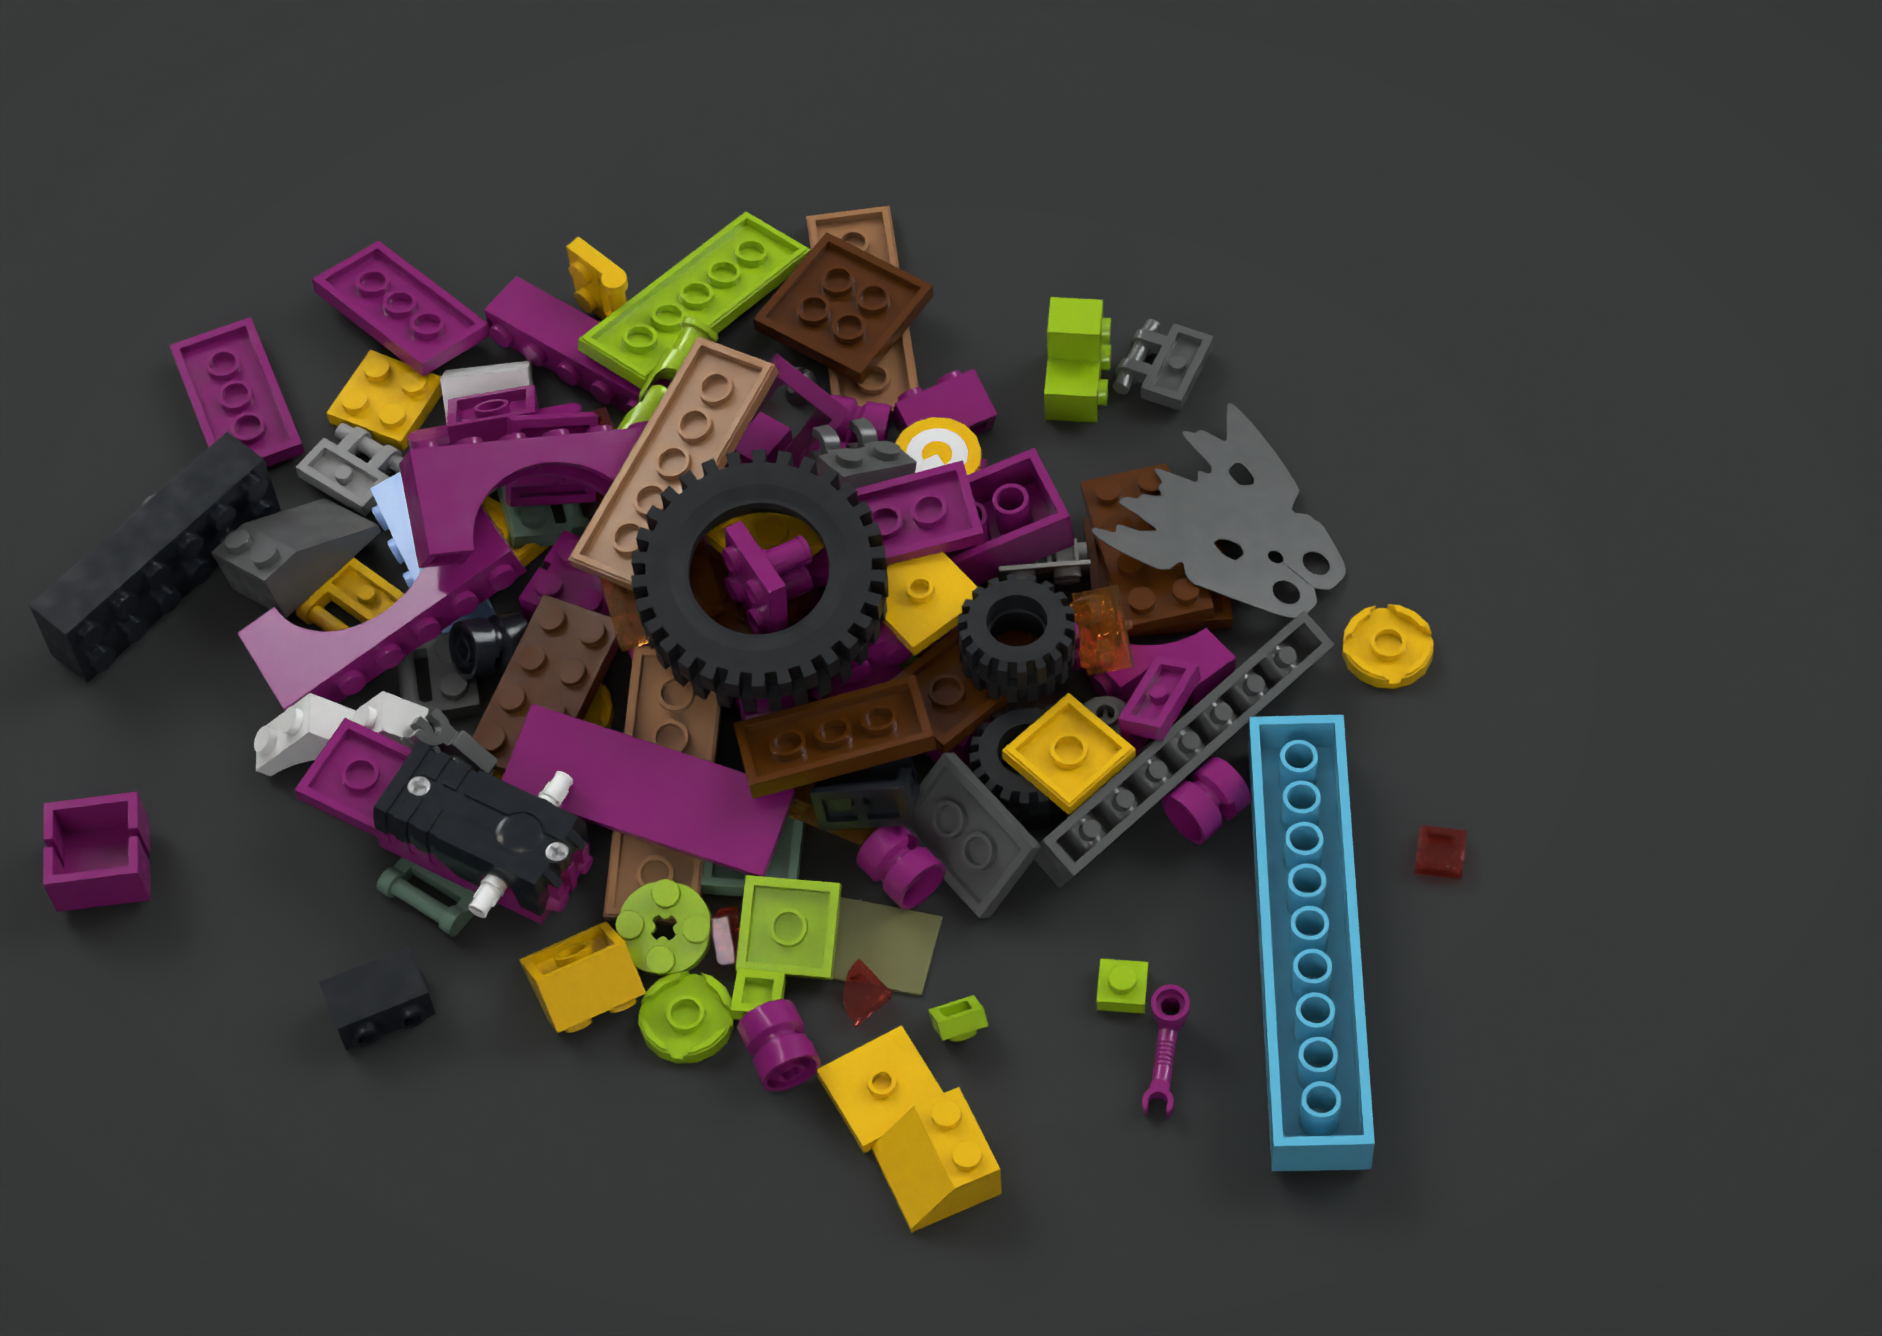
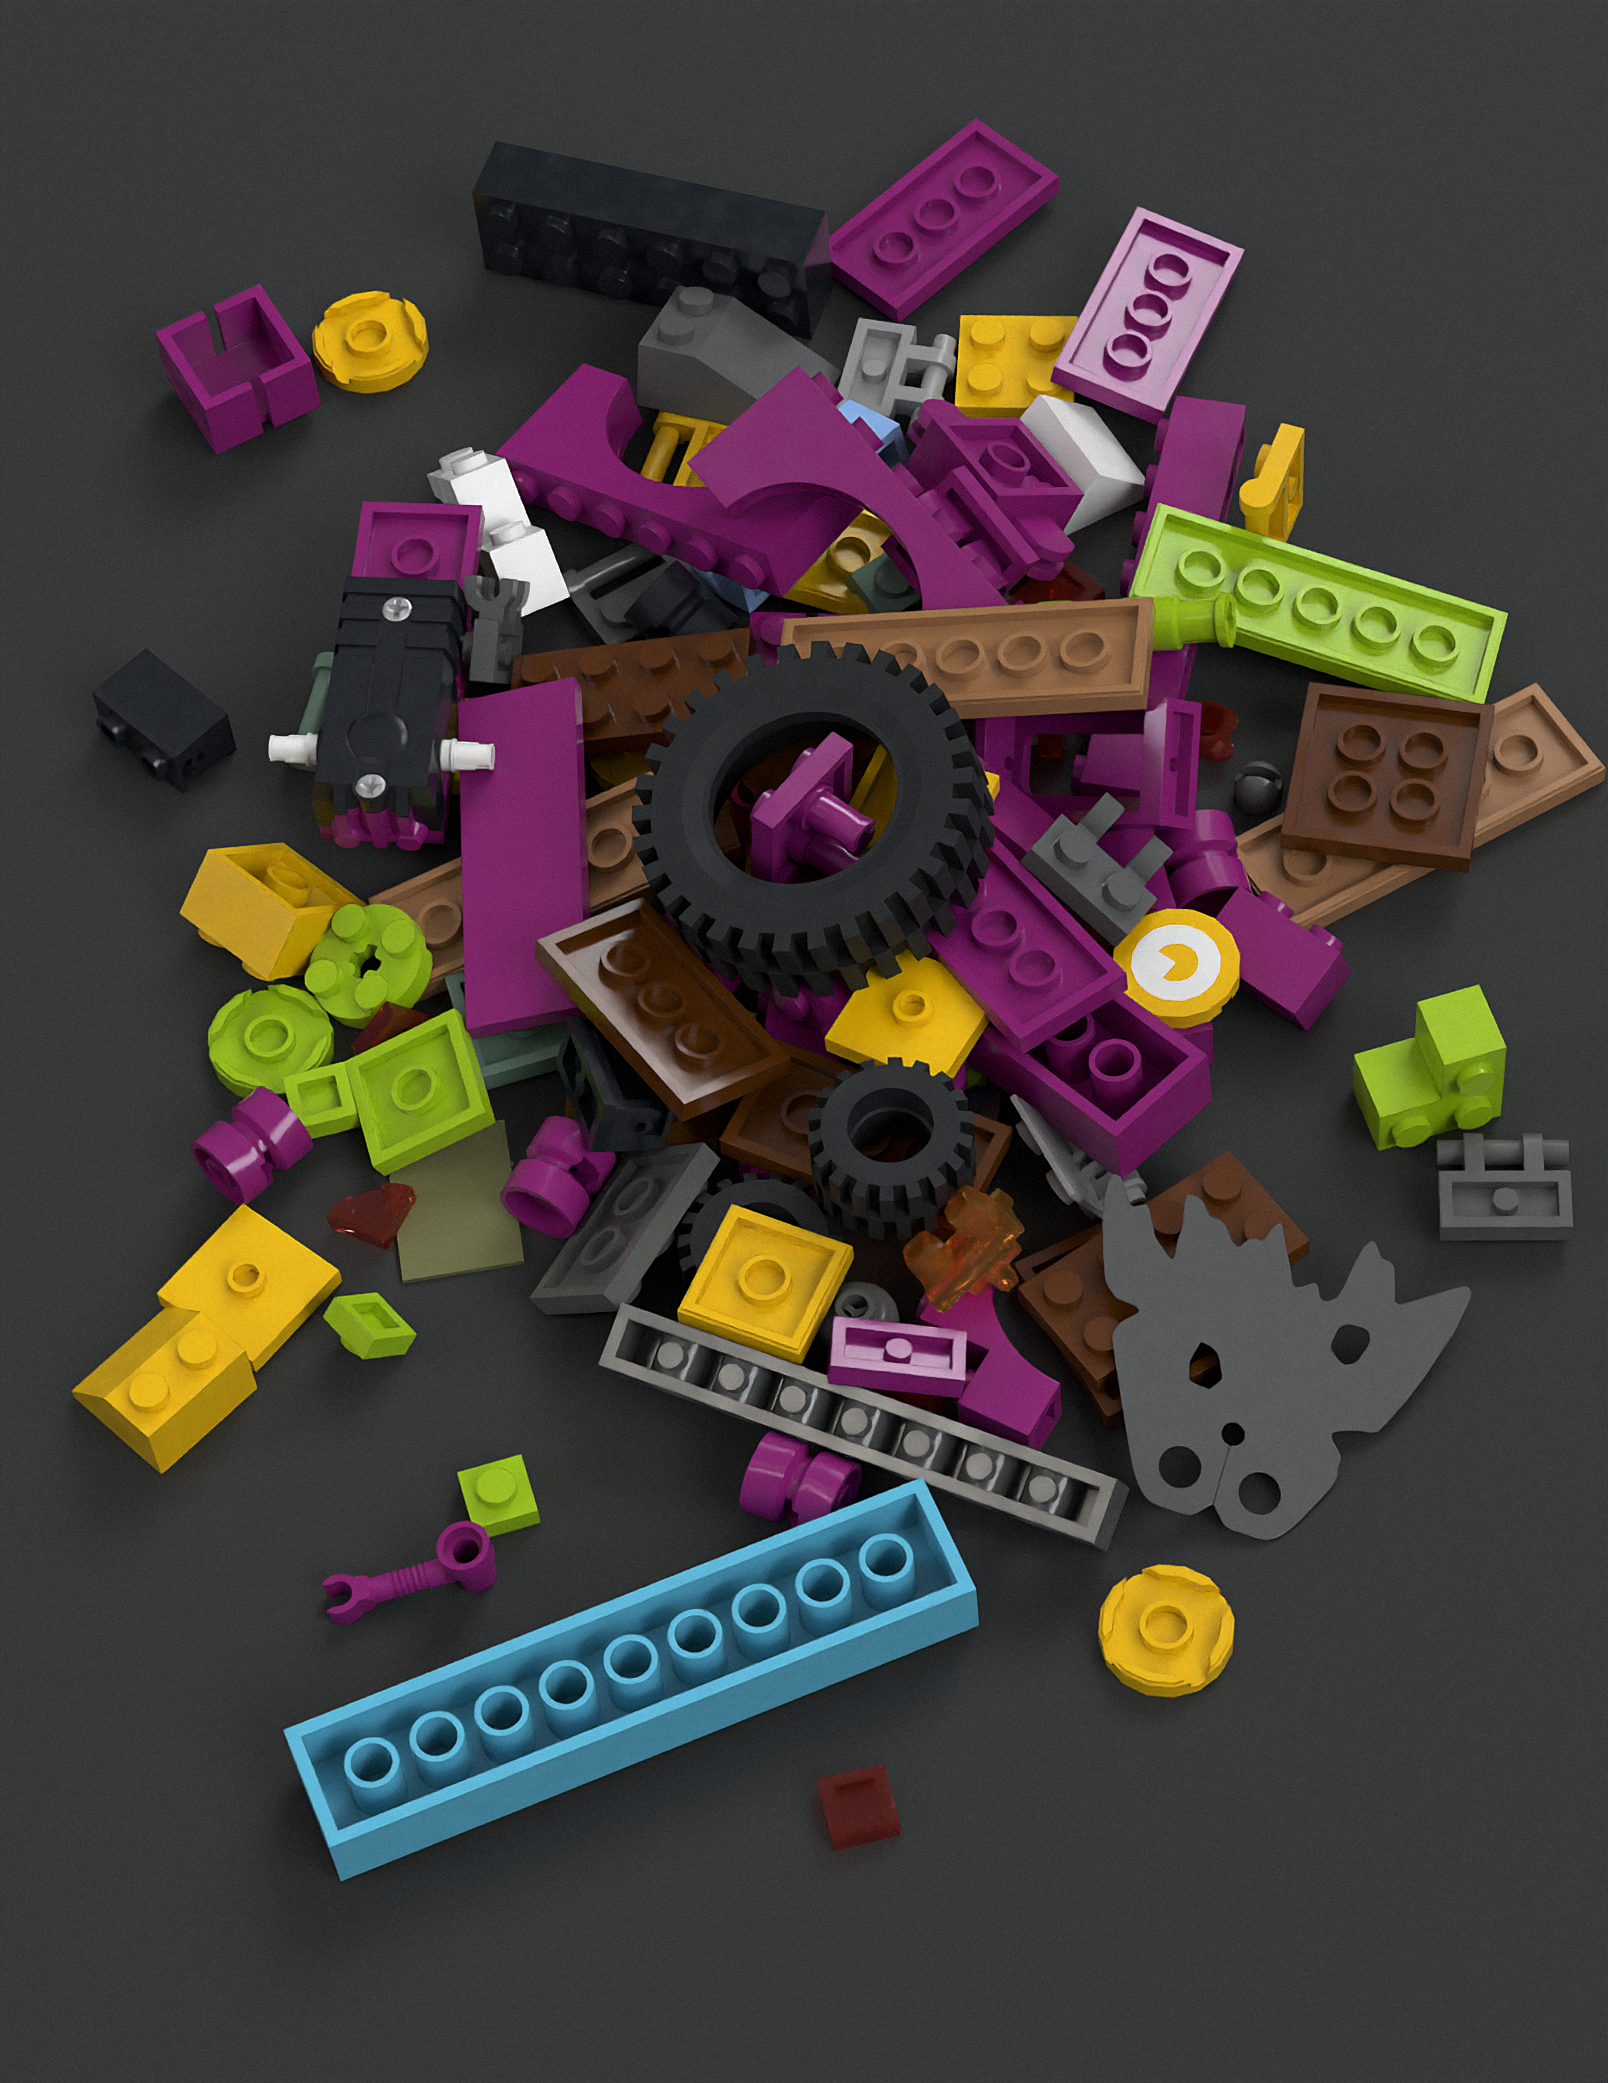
camera: 70 degrees right, 0 degrees up
(111, 764) = (370, 342): none -> yellow tile

